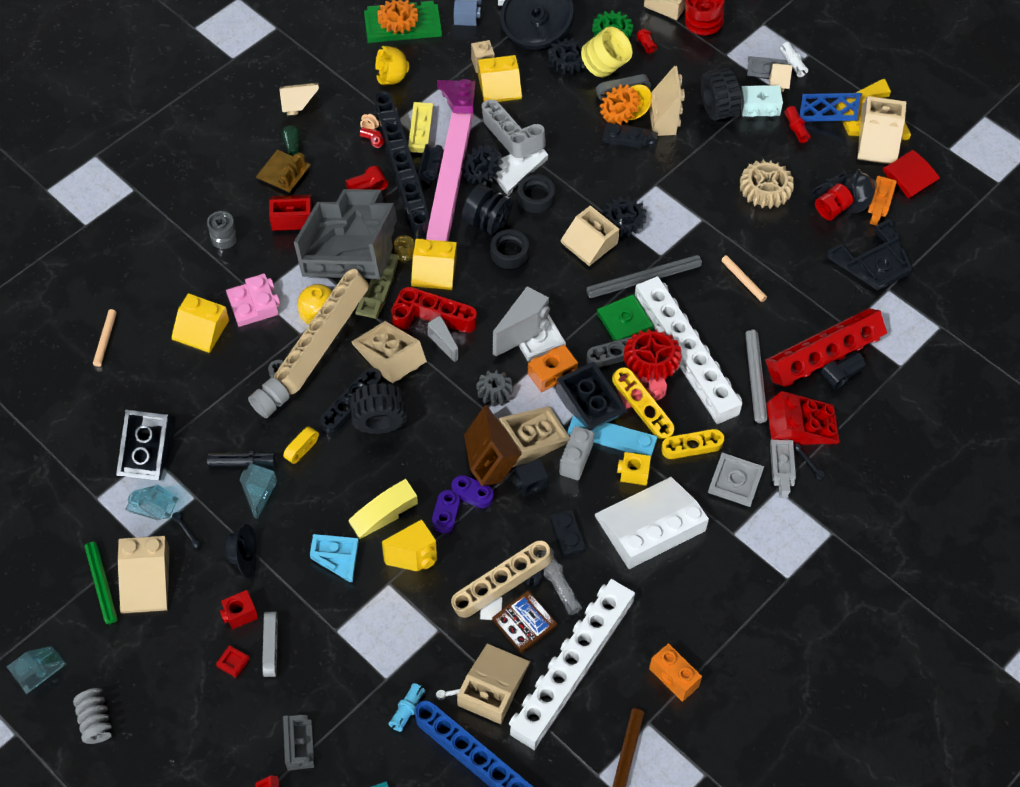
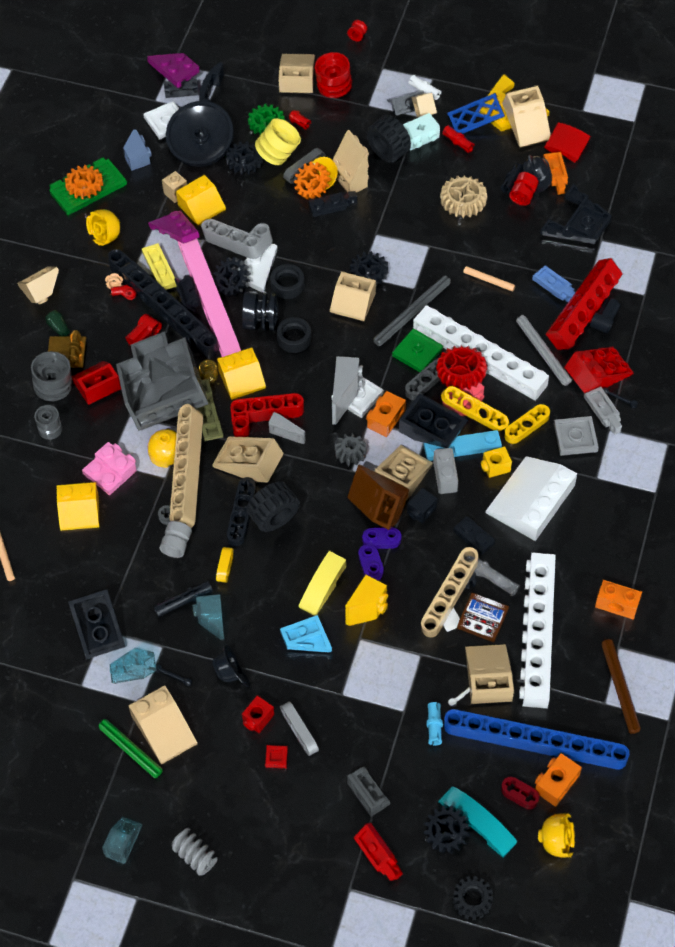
camera: 25 degrees left, 0 degrees up
(250, 186) = (51, 376): none -> dark grey wheel
(808, 312) = (554, 283): none -> medium blue hinge

